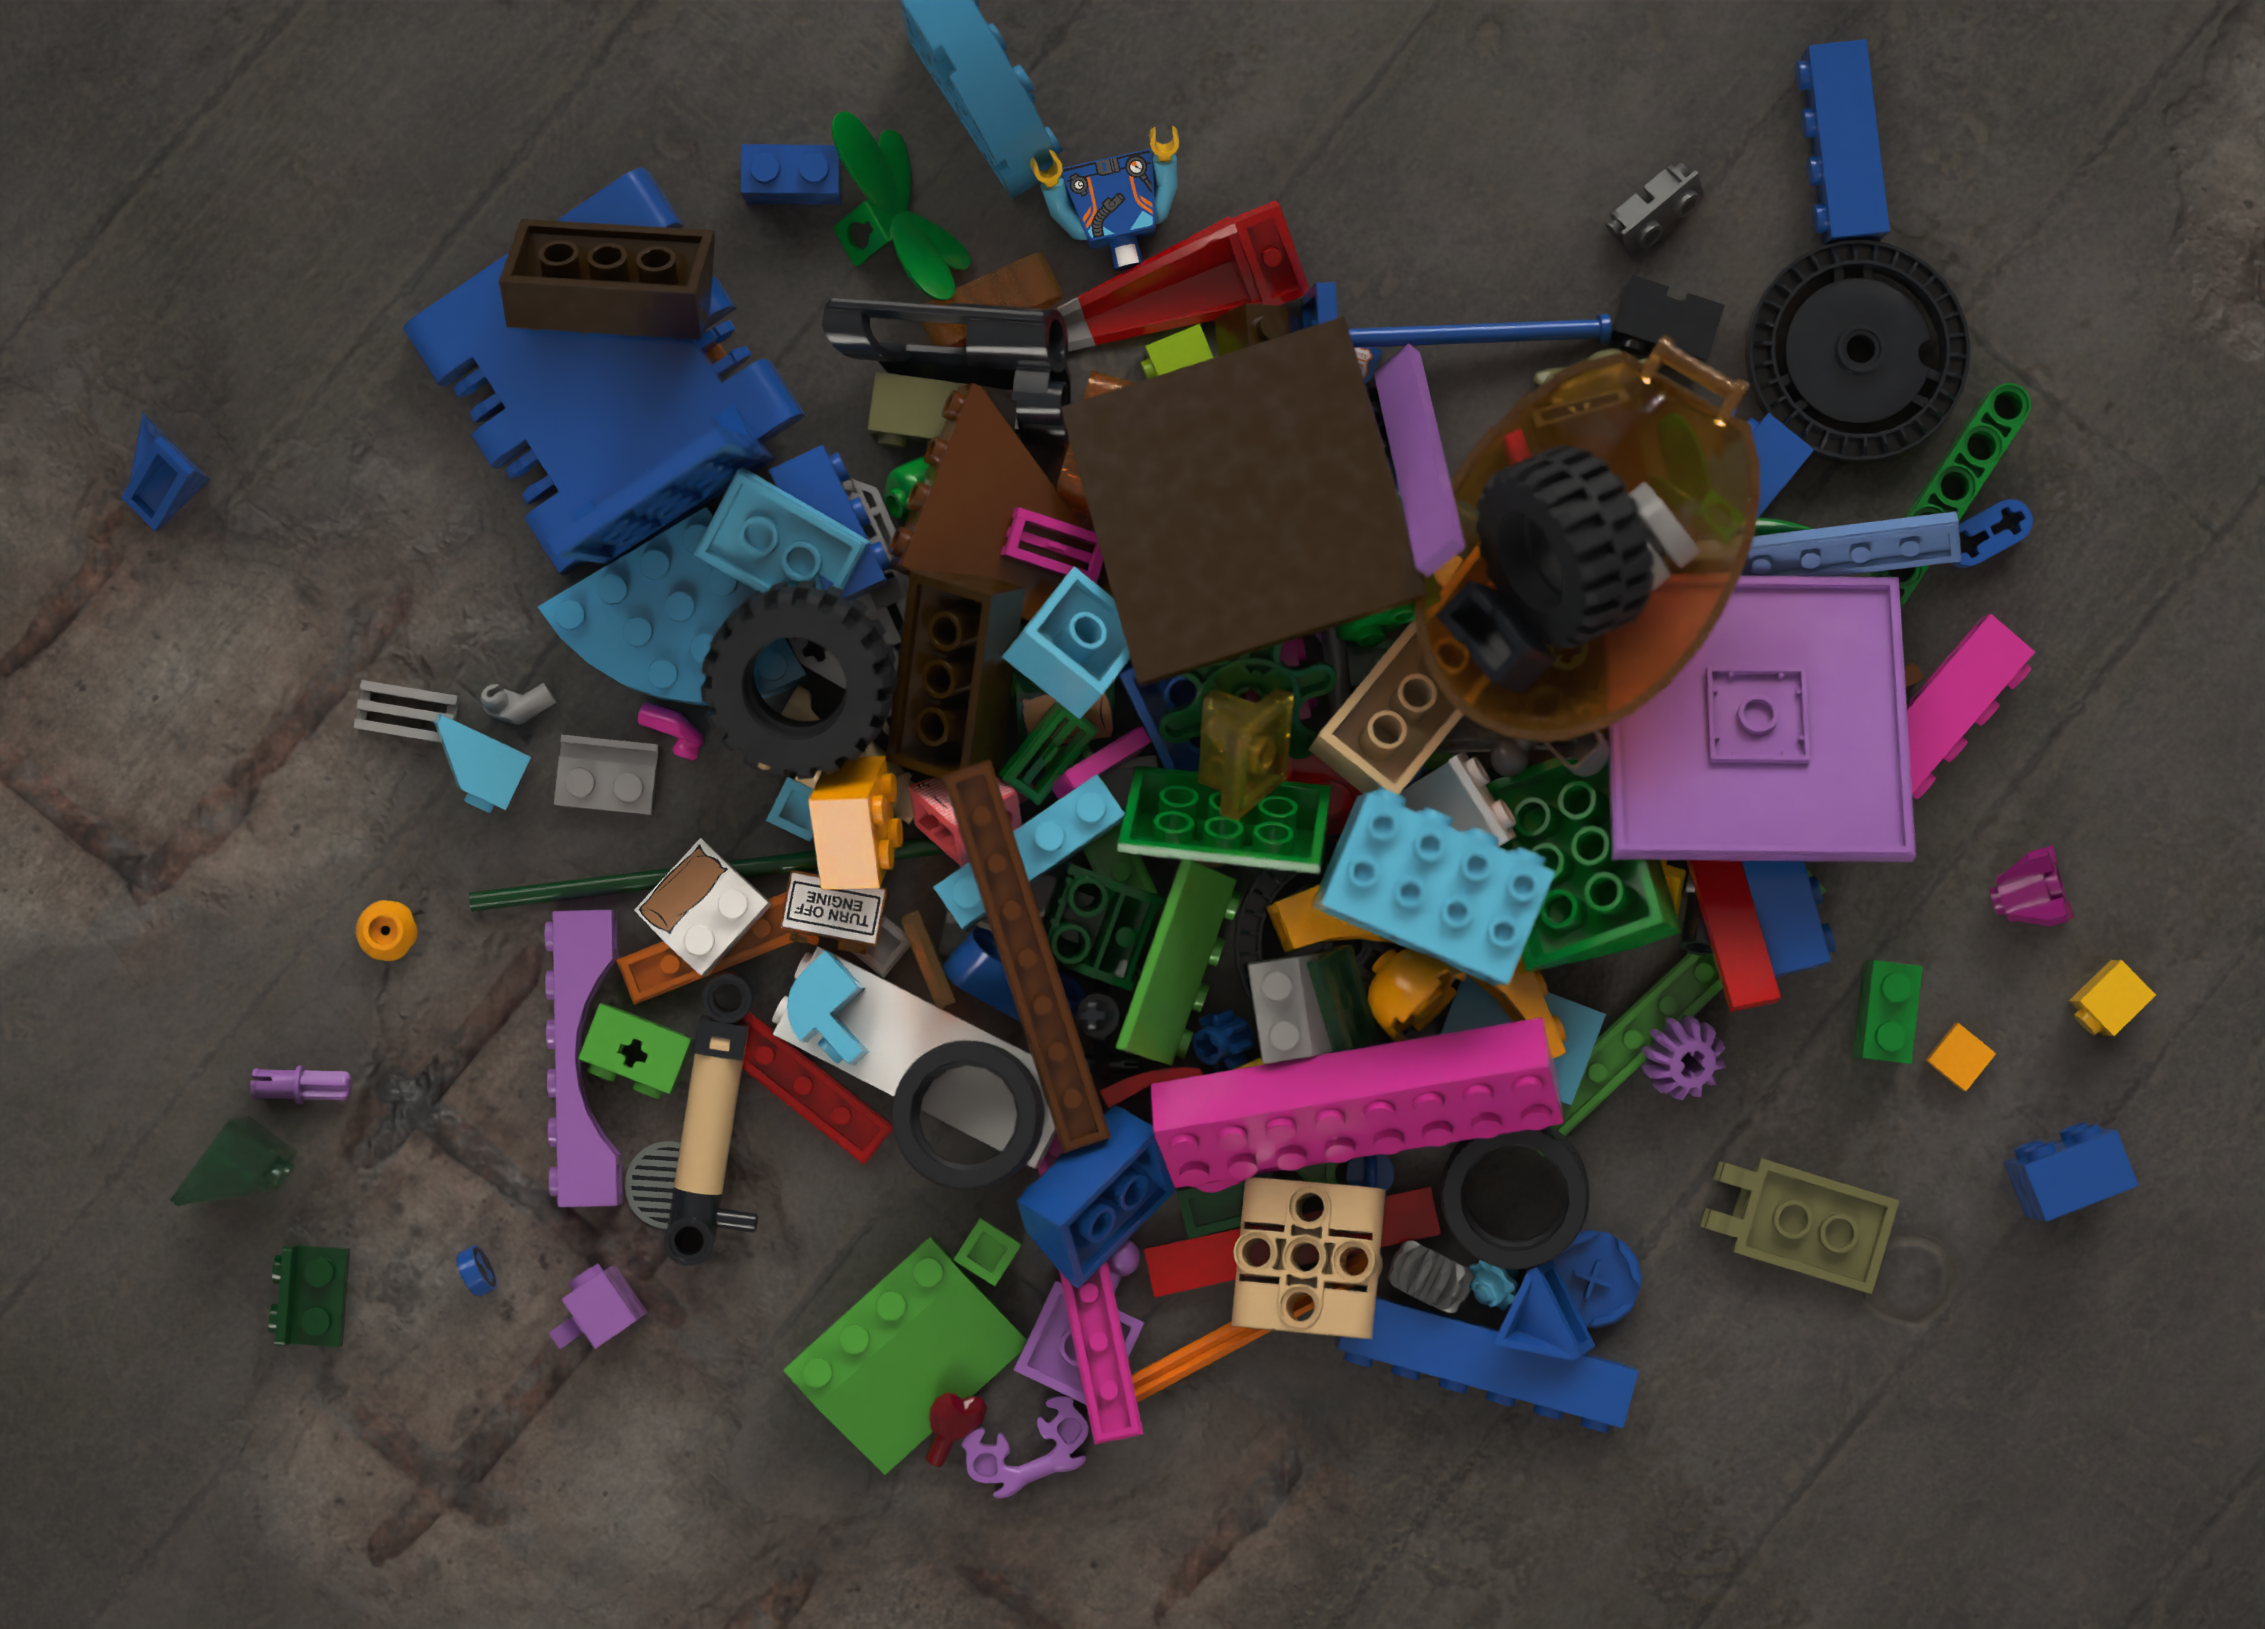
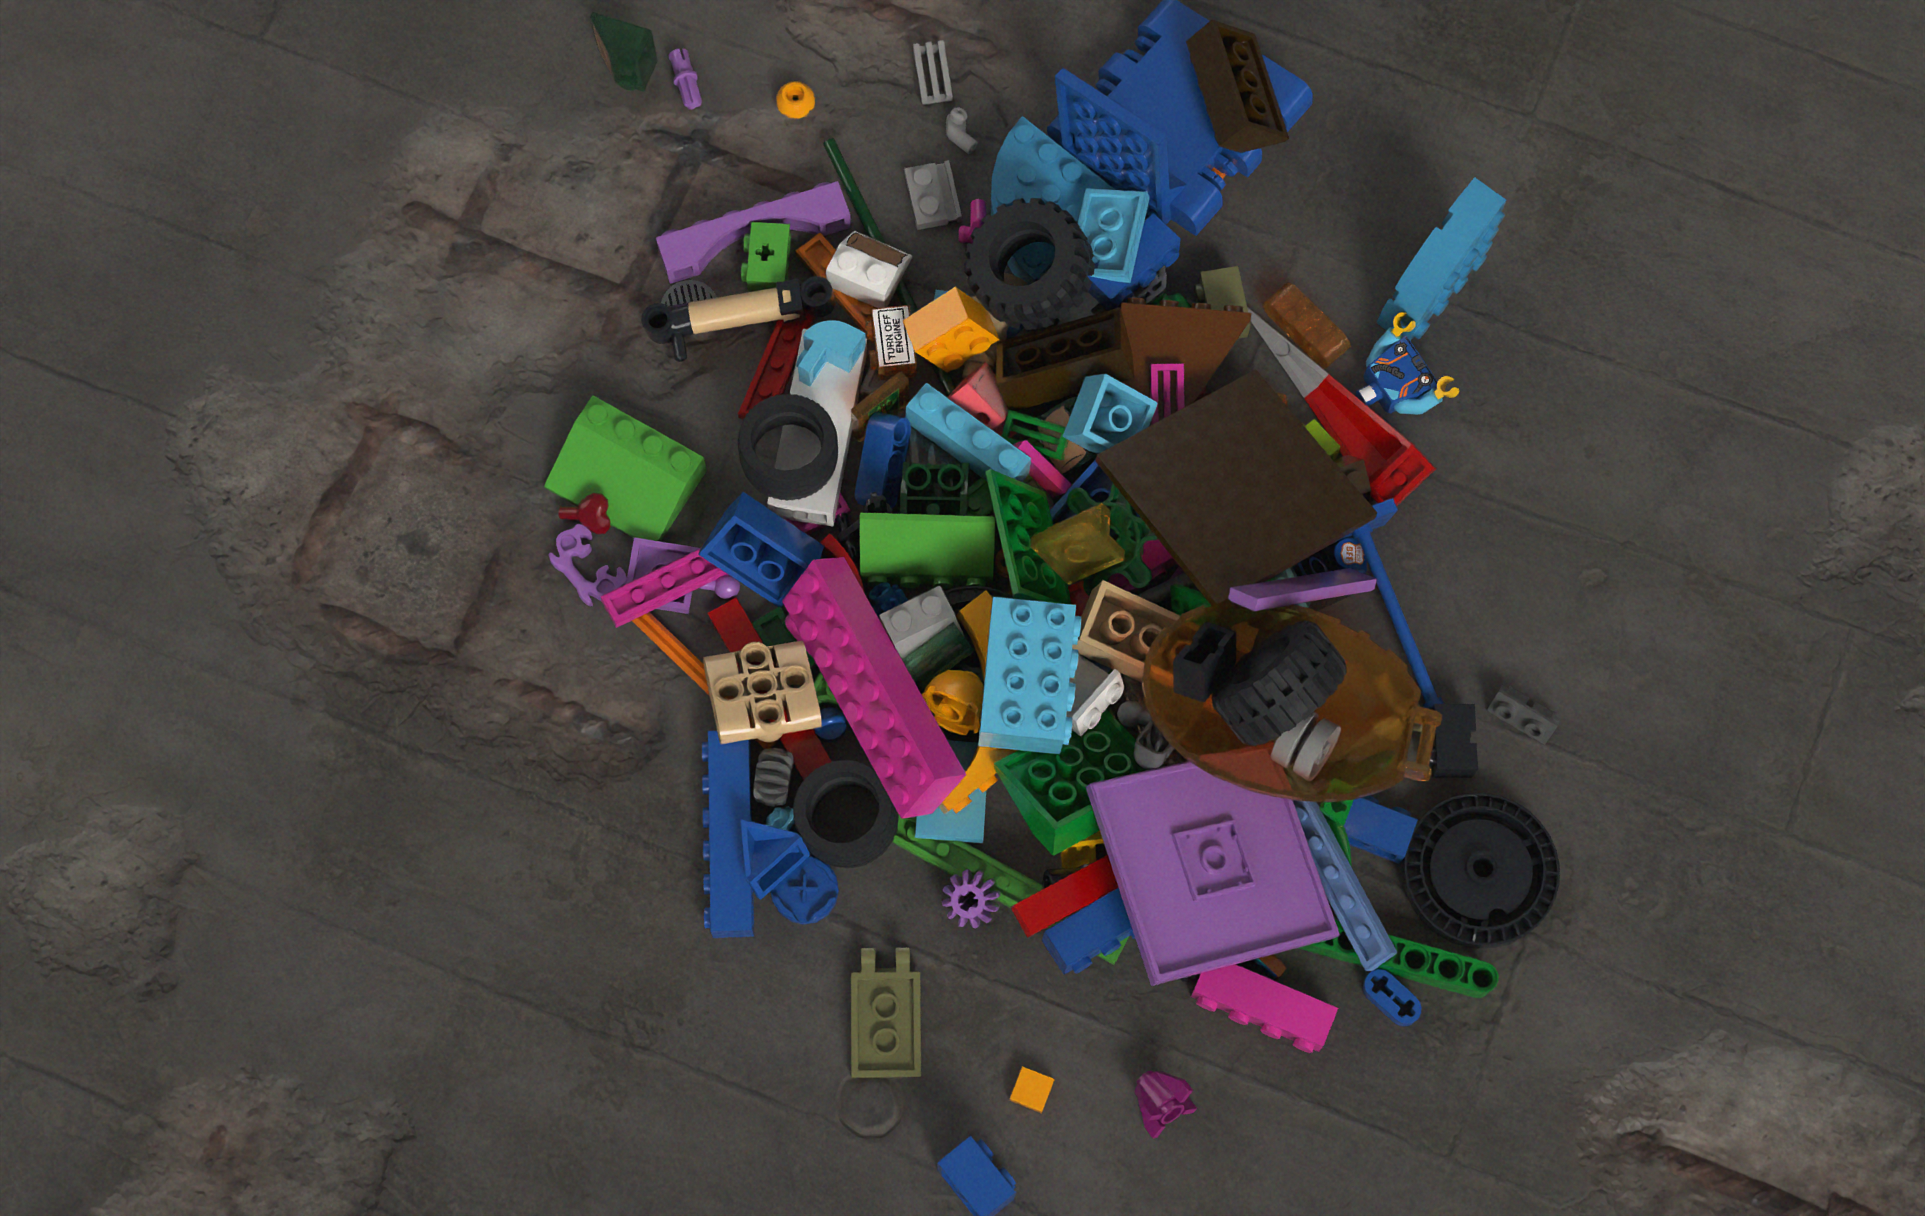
camera: 75 degrees right, 15 degrees down
(310, 1295) = (557, 121): dark green bracket -> none
(476, 1271) = (601, 208): blue tile -> none
(481, 764) = (915, 117): medium azure slope -> none
(599, 1307) = (600, 279): medium lavender brick -> none
(791, 174) = (1342, 186): blue brick -> none
(885, 179) = (1355, 244): green piece -> none
(987, 1251) = (704, 500): bright green panel -> none
(1004, 350) = (1279, 331): black panel -> none
(1026, 955) = (900, 449): reddish brown tile -> none
(1843, 142) = (1616, 818): blue brick -> none
(1887, 1011) = (1046, 1025): green brick -> none
(2110, 999) = (1104, 1177): yellow brick -> none

